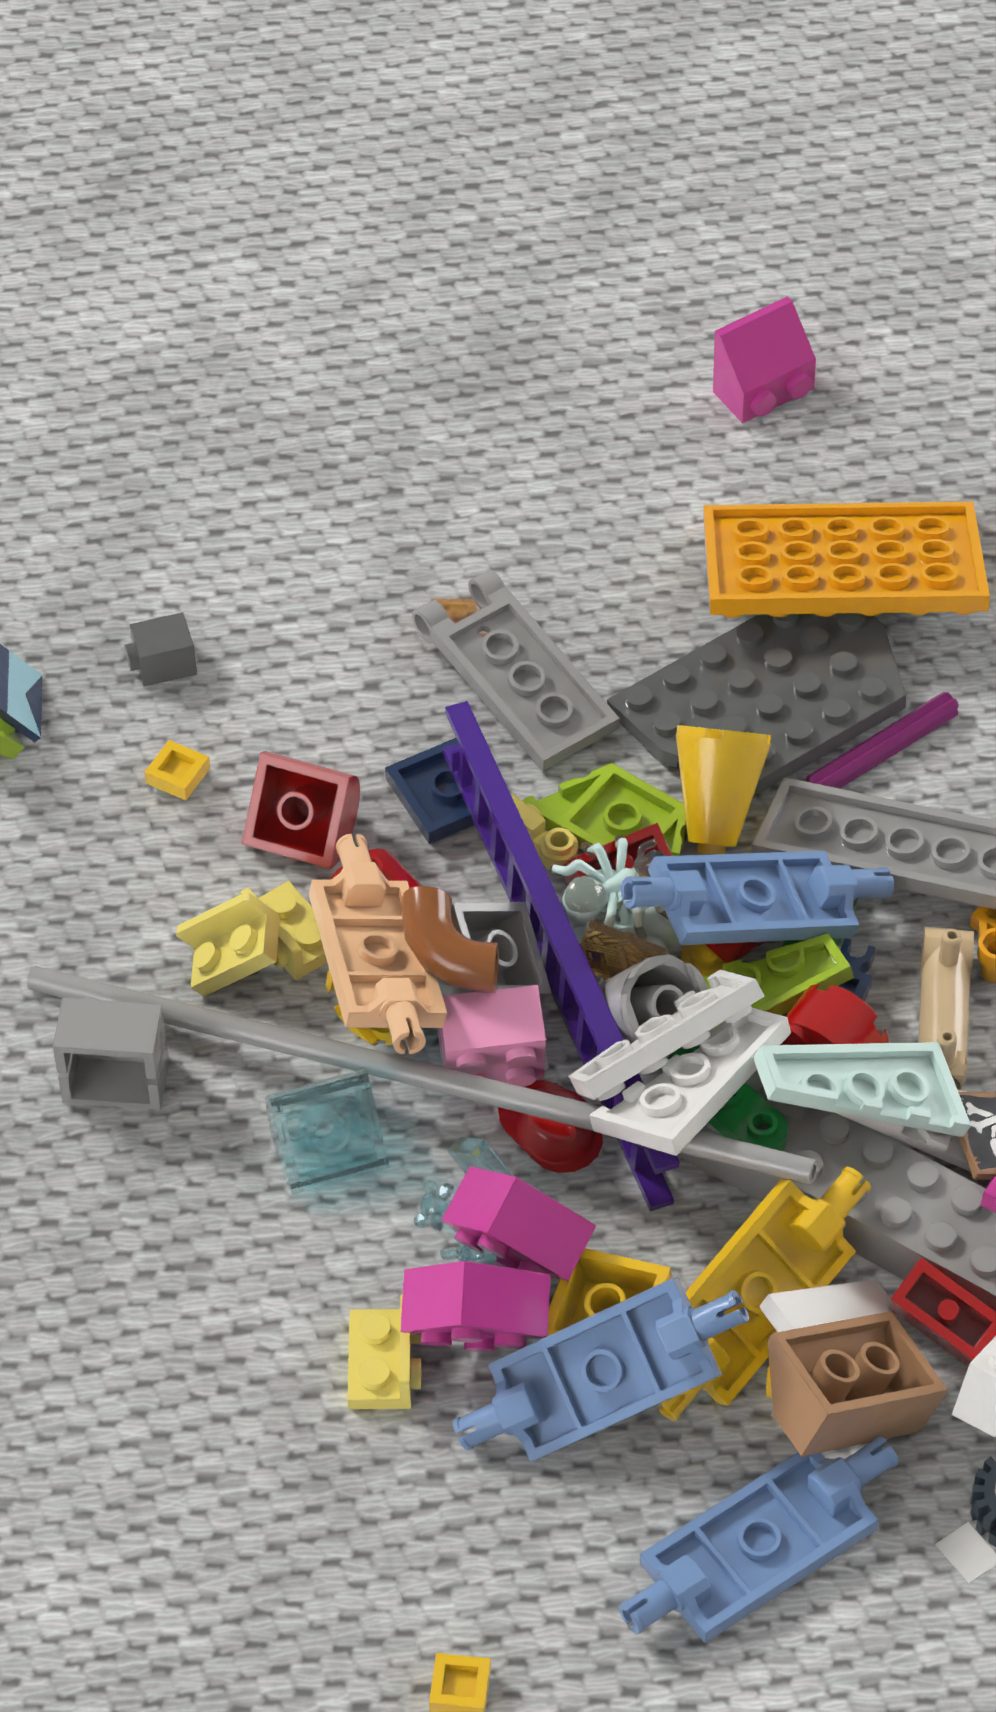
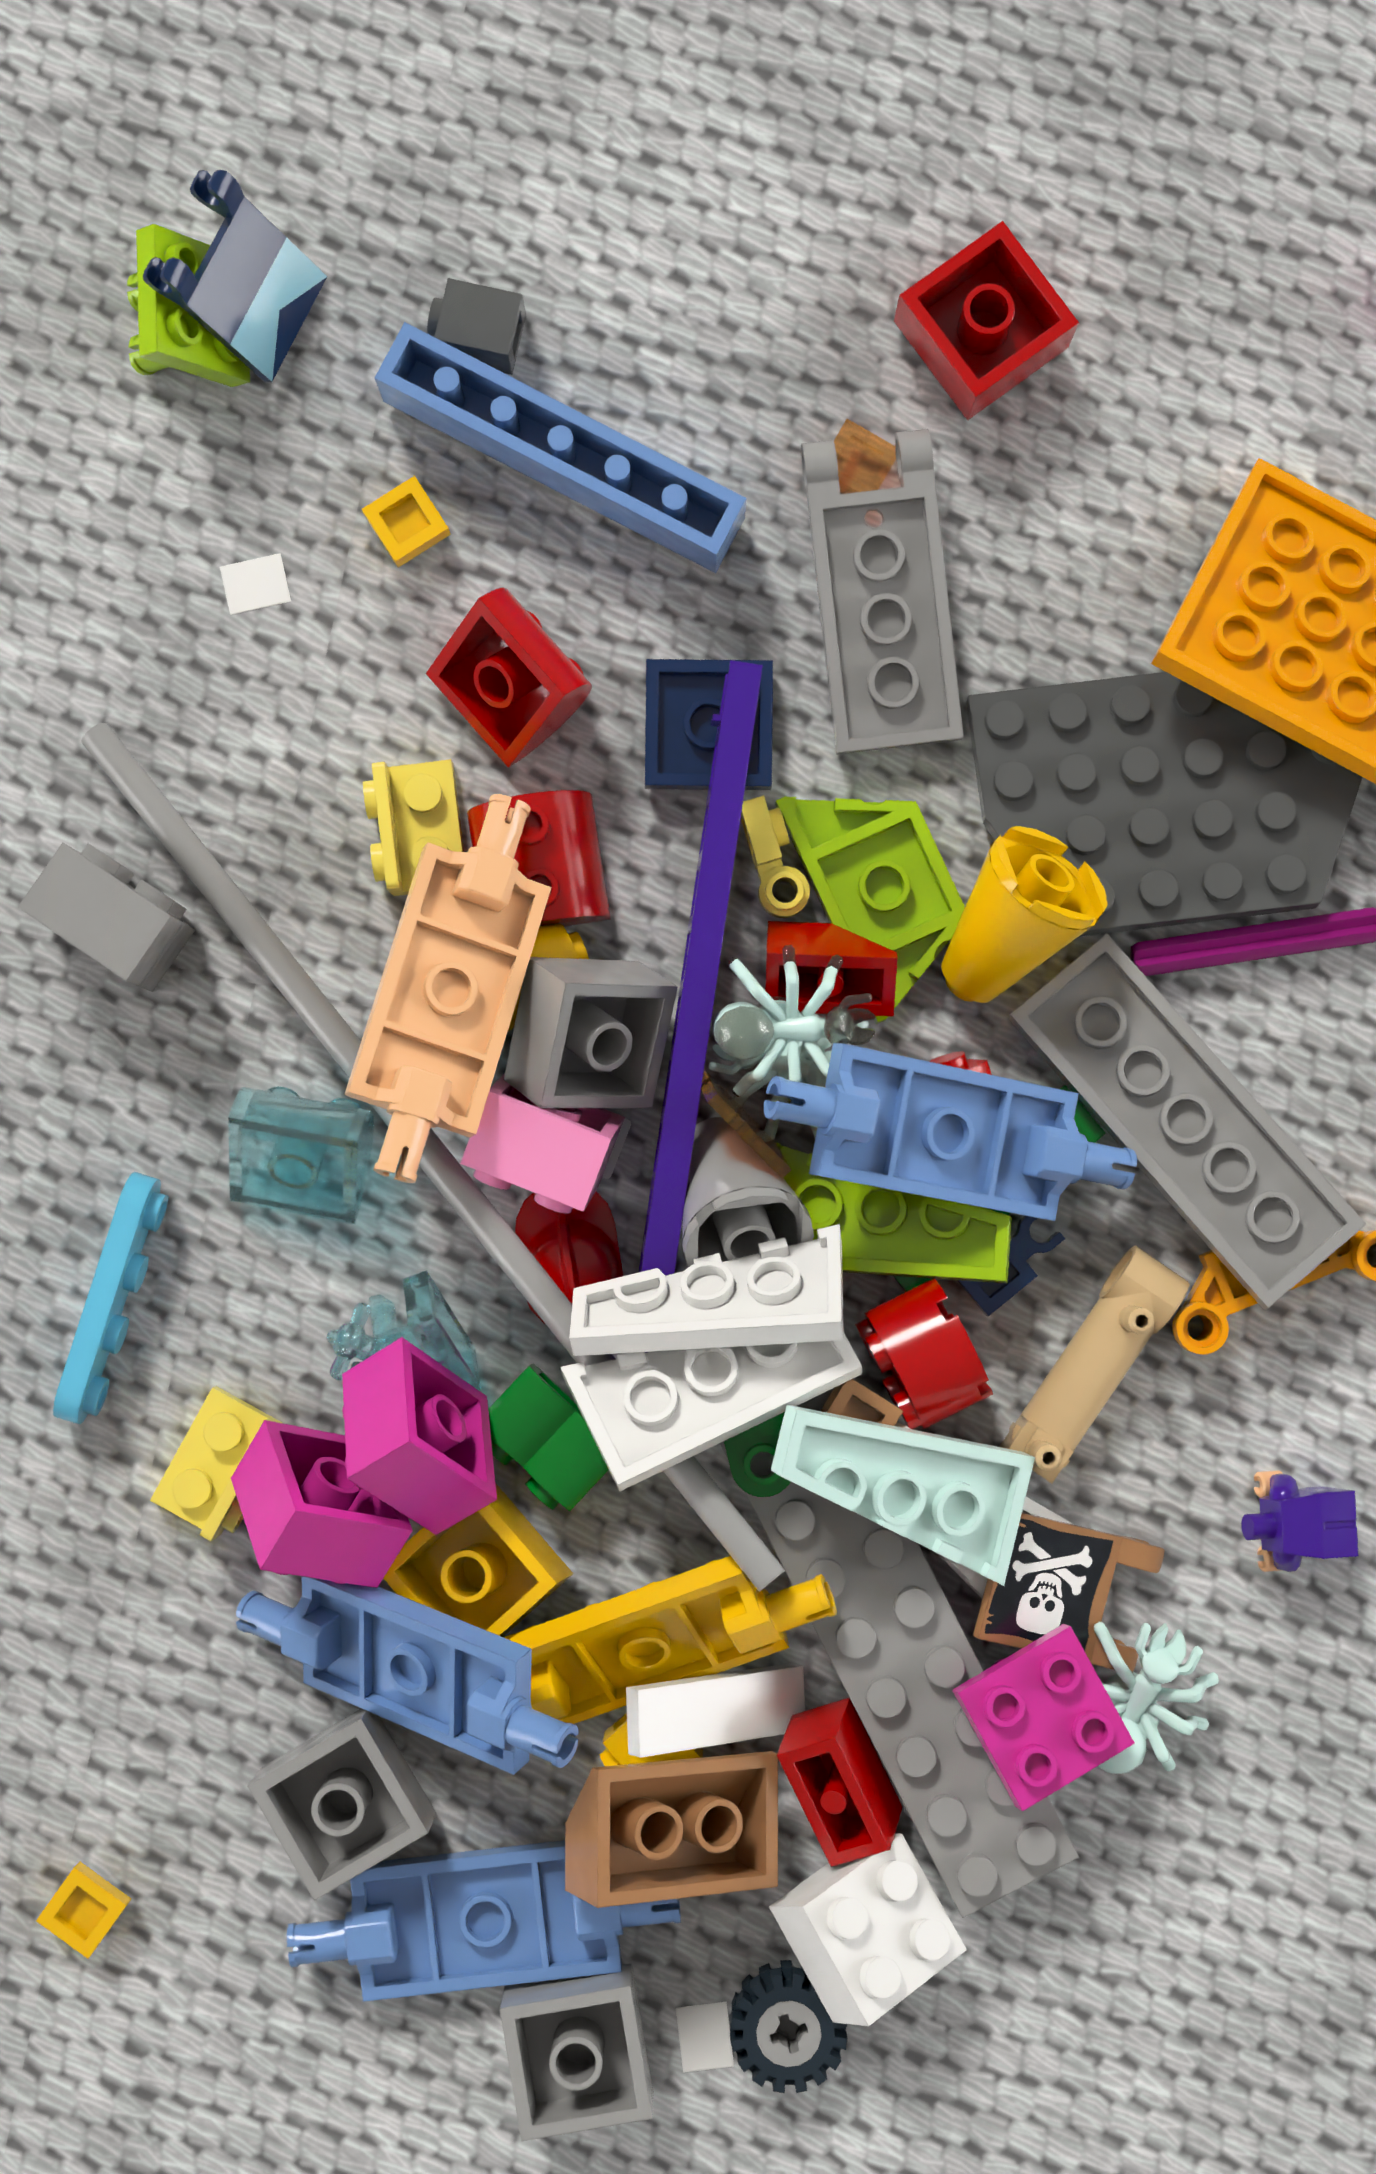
camera: 30 degrees right, 35 degrees up
(93, 854) = (255, 584): none -> white sticker
(230, 942) = (327, 834): light yellow bracket -> none
(248, 1305) = (101, 1324): none -> medium azure plate
(258, 681) = (560, 447): none -> medium blue brick
(441, 947) = (516, 1042): dark orange cylinder -> none
(486, 507) = (985, 320): none -> red brick
(606, 1502) = (342, 1801): none -> light grey brick
(624, 1216) = (547, 1437): none -> green brick
(880, 1577) = (576, 2054): none -> light grey brick

